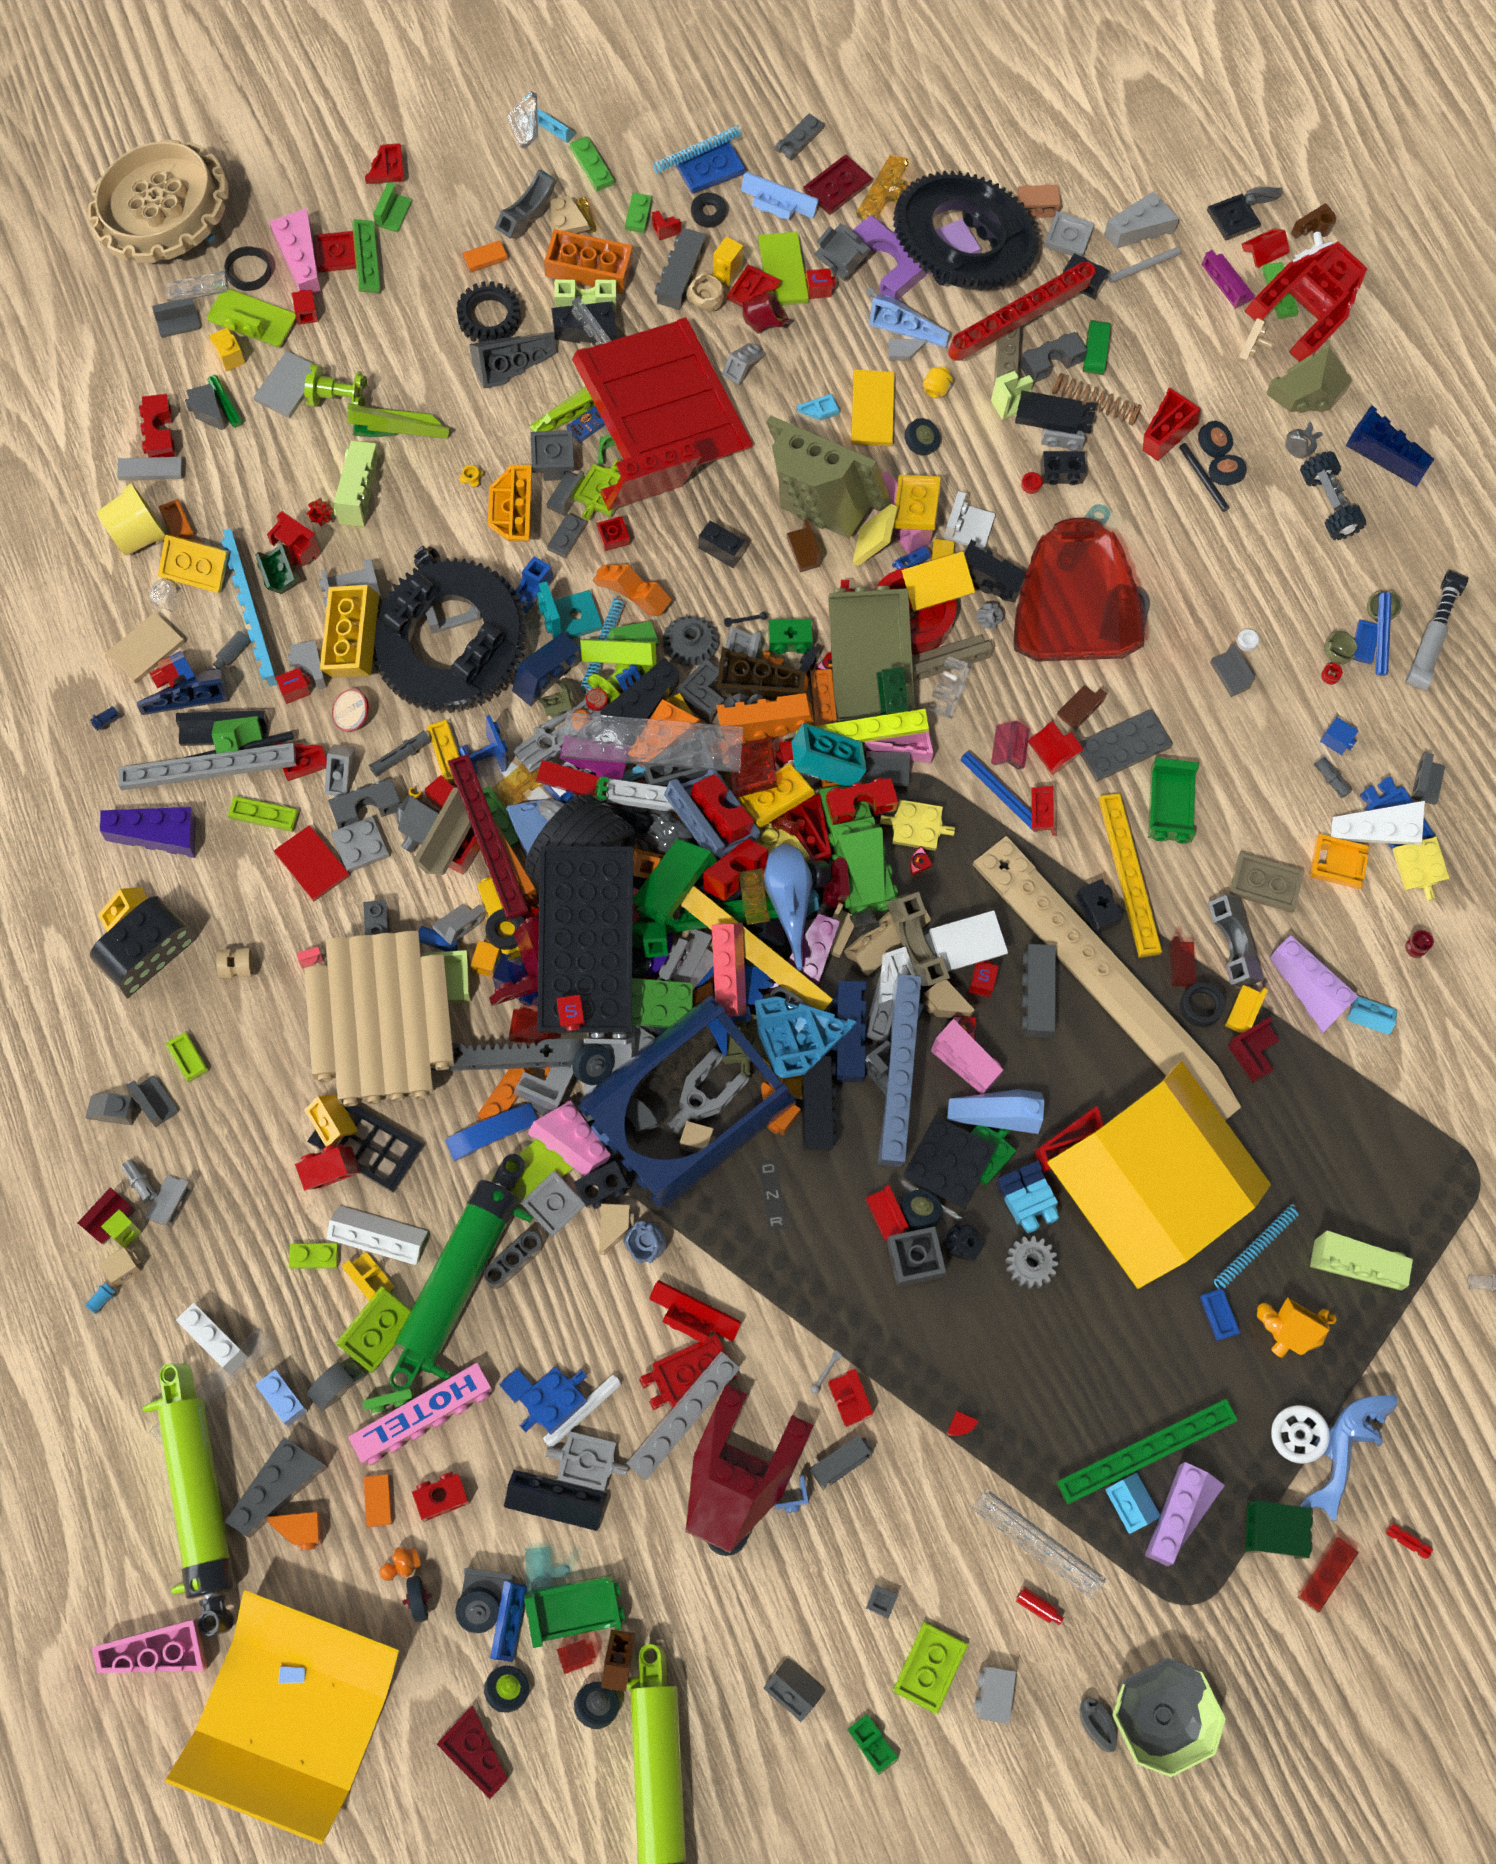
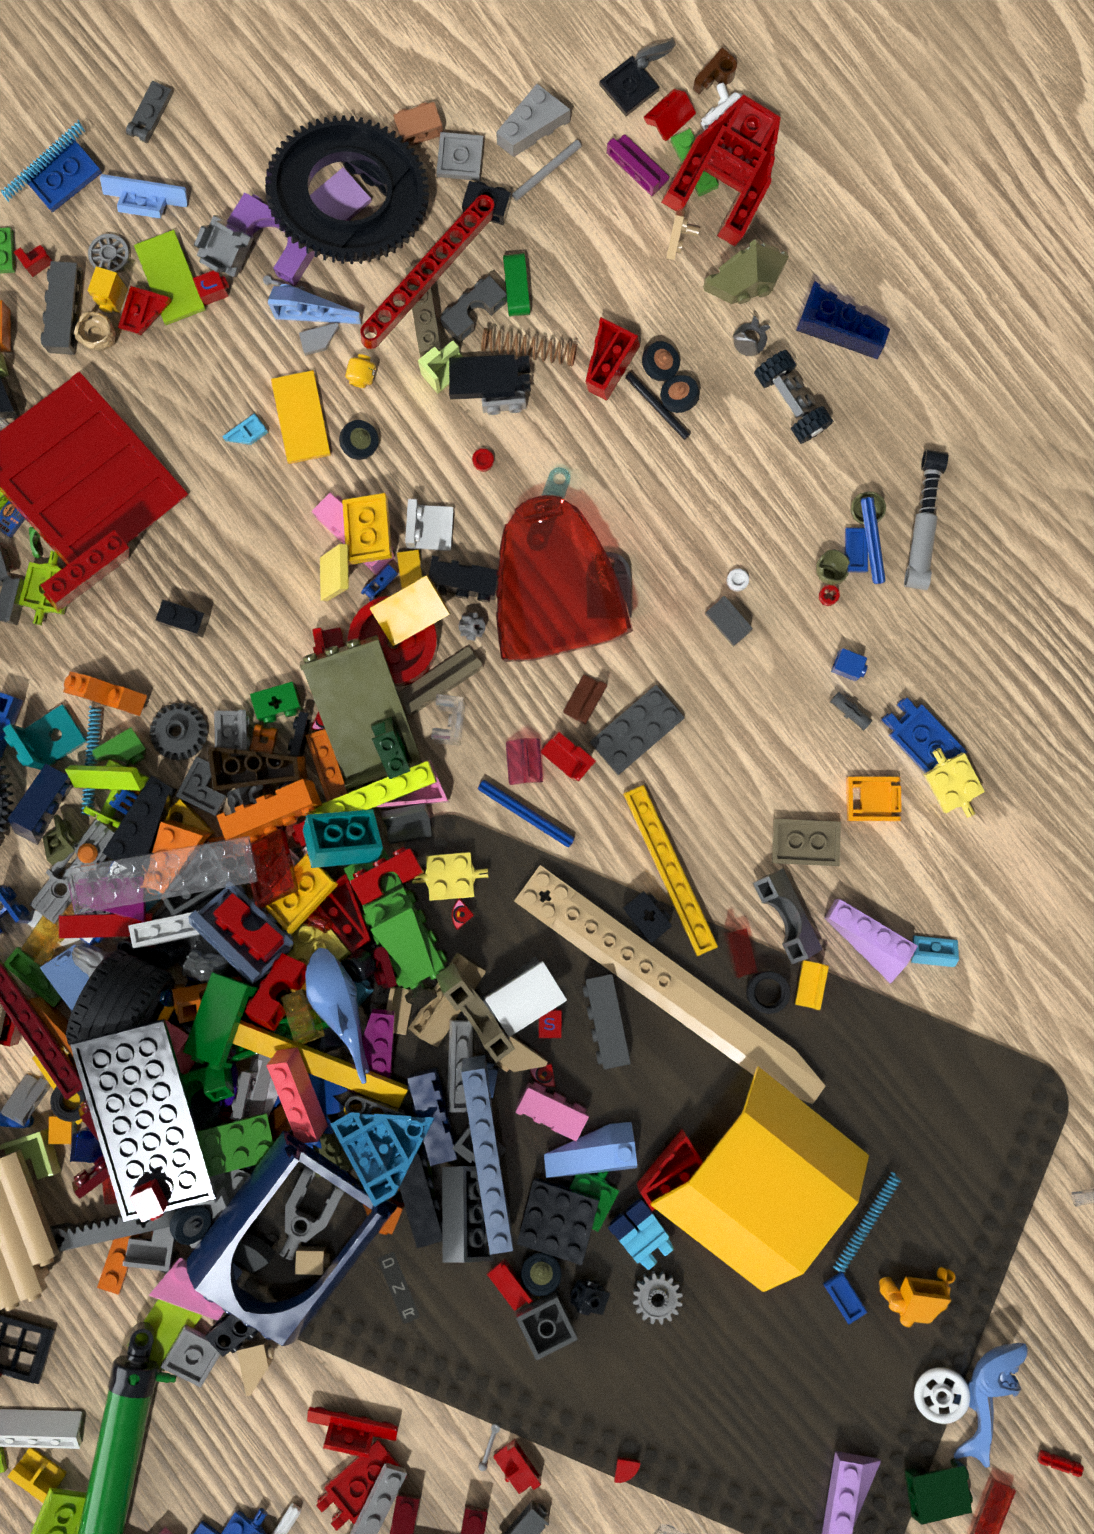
camera: 10 degrees left, 15 degrees up
(491, 1131) = (116, 1300): blue slope -> none
(509, 1271) = (161, 1430): dark grey beam -> none
(566, 535) = (24, 648): dark grey plate -> none
(596, 699) = (97, 831): red tile -> none
(601, 789) = (123, 937): green tile -> none
(613, 533) = (69, 635): red piece -> none
(645, 1241) = (289, 1374): sand blue hair -> none
(708, 220) = (74, 214): black tyre -> none
(728, 621) = (212, 700): black hinge -> none
(734, 234) = (108, 252): none -> light grey wheel
(740, 360) = (151, 399): light grey bracket -> none
(764, 312) = (162, 338): dark red piece -> none
(804, 548) = (267, 599): reddish brown panel -> none
(824, 479) = (261, 534): olive wedge -> none
(838, 184) = (203, 159): dark red tile -> none
(858, 1133) = (463, 1217): none -> dark grey wedge
(885, 188) = (254, 151): clear yellow plate -> none
(893, 963) = (463, 1043): white wing -> none
(1044, 809) = (572, 825): red panel -> none
(1062, 462) = (509, 430): black brick -> none
(1133, 1503) = (800, 1502): medium azure panel -> none
(1146, 1451) = (802, 1450): green plate -> none
(1172, 800) = (697, 780): green panel -> none
(1249, 1048) = (822, 1028): dark red panel -> none
(1361, 1261) = (968, 1214): yellowish green wedge -> none
(1387, 825) = (915, 753): white wing -> none
(1423, 940) = (972, 868): dark red wheel -> none
(1428, 780) = (946, 687): dark grey panel -> none

